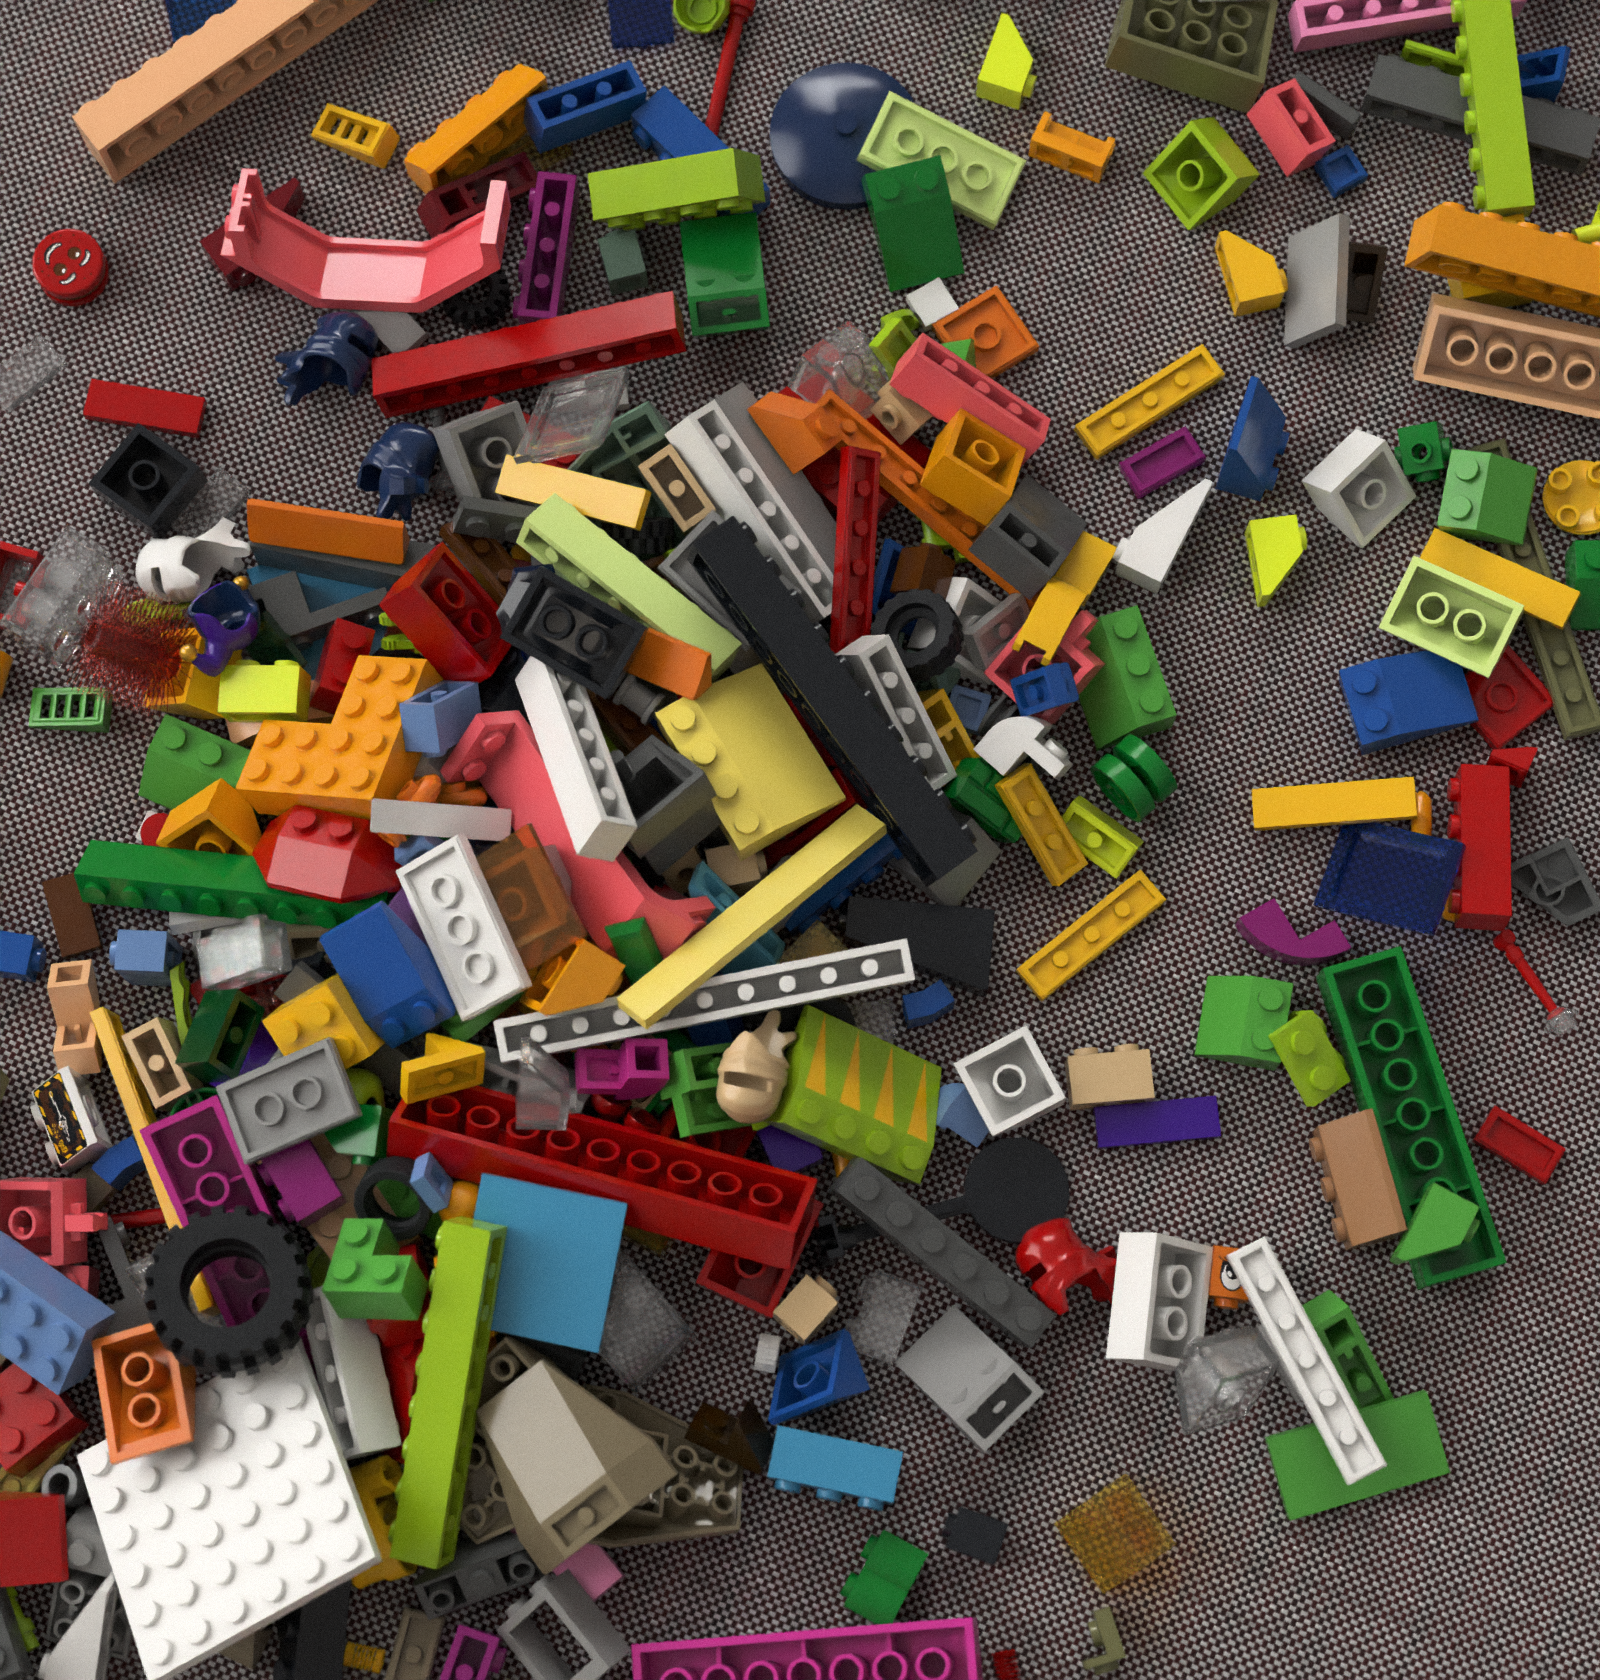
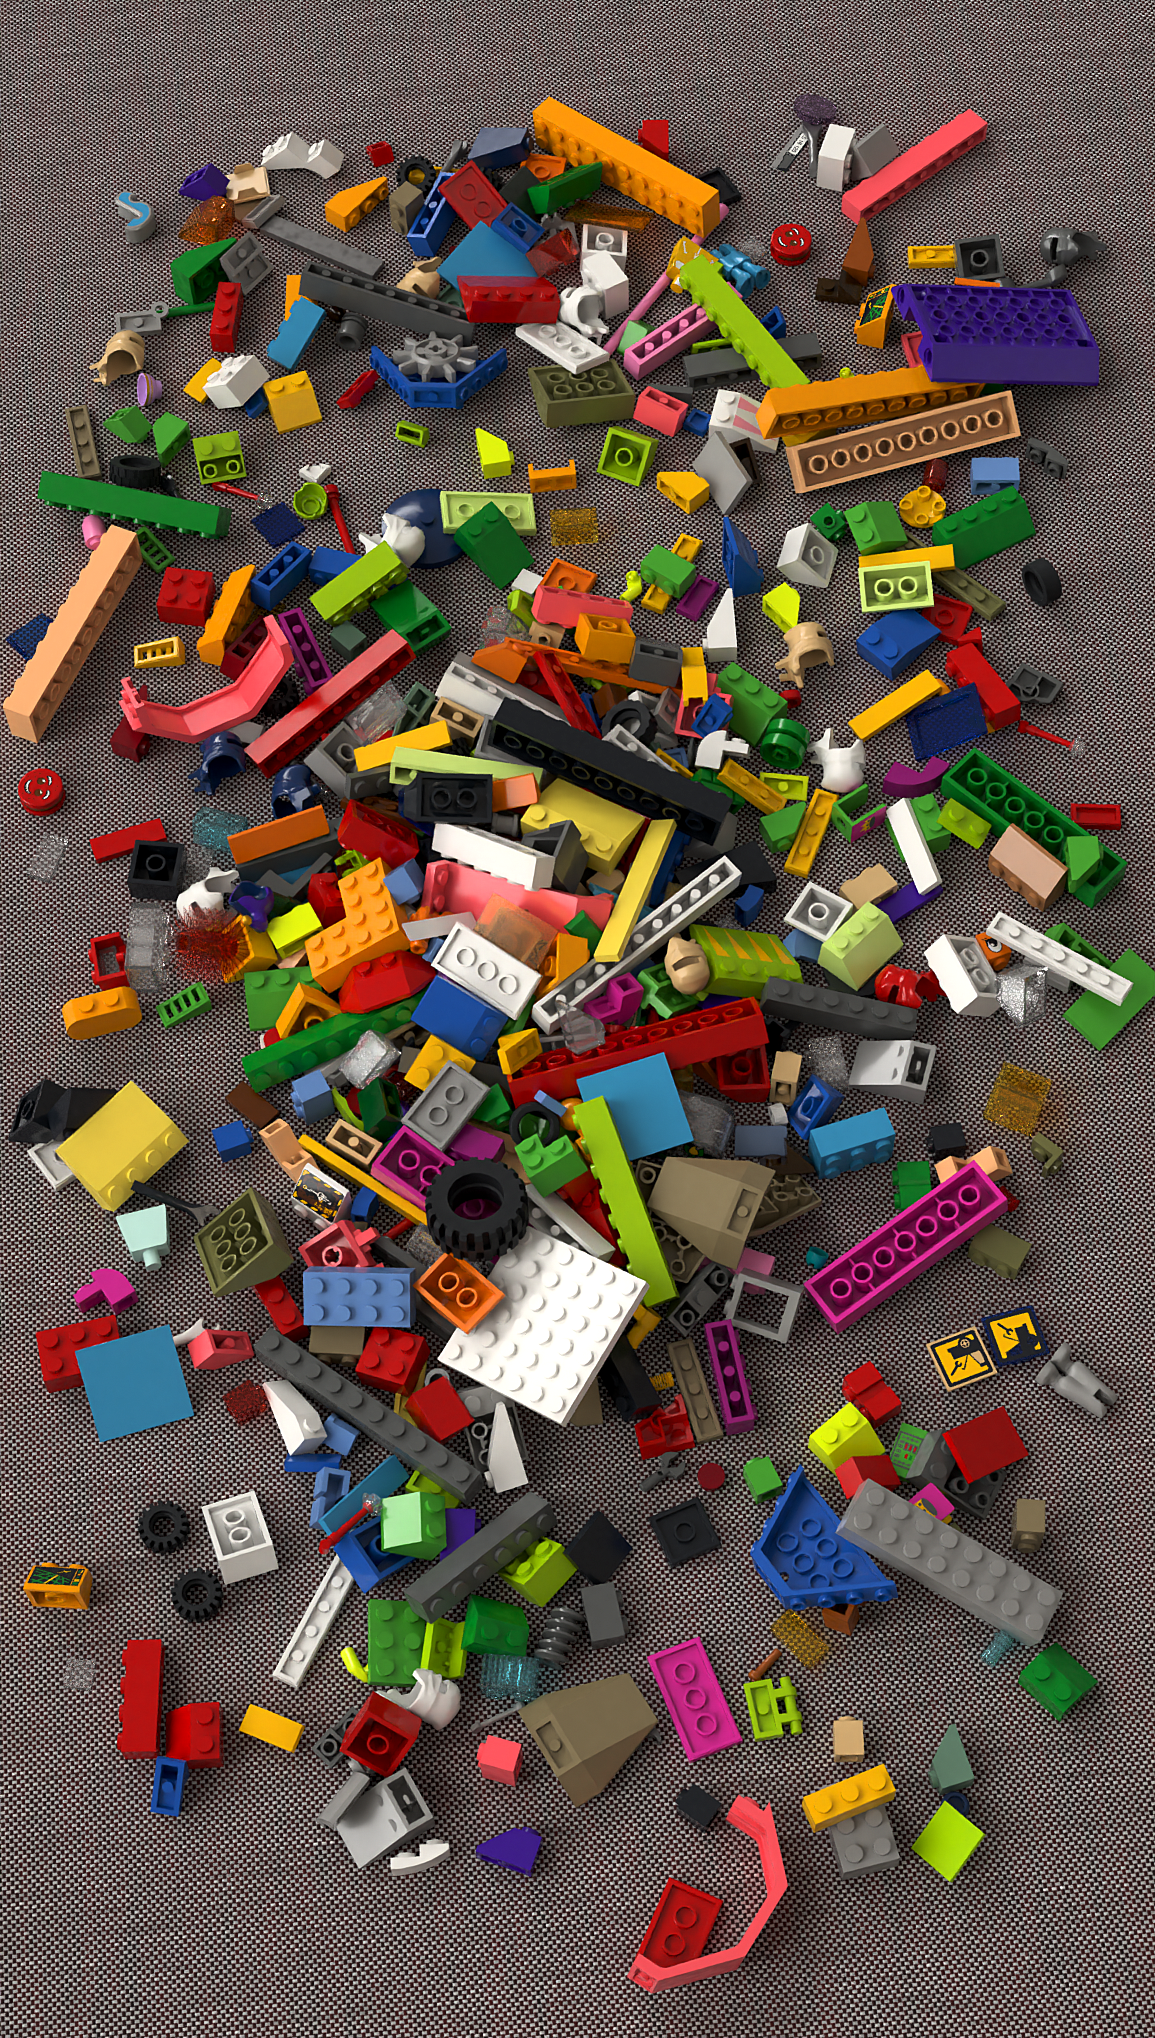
camera: 30 degrees left, 15 degrees down
(267, 465) = (214, 826): none -> clear light blue brick
(439, 65) = (186, 596): none -> red brick
(696, 1596) = (817, 1257): none -> teal hinge
(719, 1377) = (759, 1140): none -> sand blue slope
(781, 139) = (402, 537): none -> white piece
(987, 1600) = (991, 1160): none -> light nougat brick
(1043, 1164) = (860, 946): none -> yellowish green slope
(1050, 249) = (573, 526): none -> clear yellow brick
(1051, 907) = (782, 827): none -> bright green slope
(1080, 396) = (634, 586): none -> neon yellow arm
(1137, 402) = (668, 571): none -> bright green brick
(1165, 925) = (862, 825): none -> bright green piece
(1190, 704) = (793, 697): none -> red tile
(1190, 864) = (840, 765): none -> white piece
(1216, 1050) = (914, 846): none -> white tile
(1262, 638) = (807, 648): none -> tan piece
(1390, 199) = (736, 420): none -> white slope

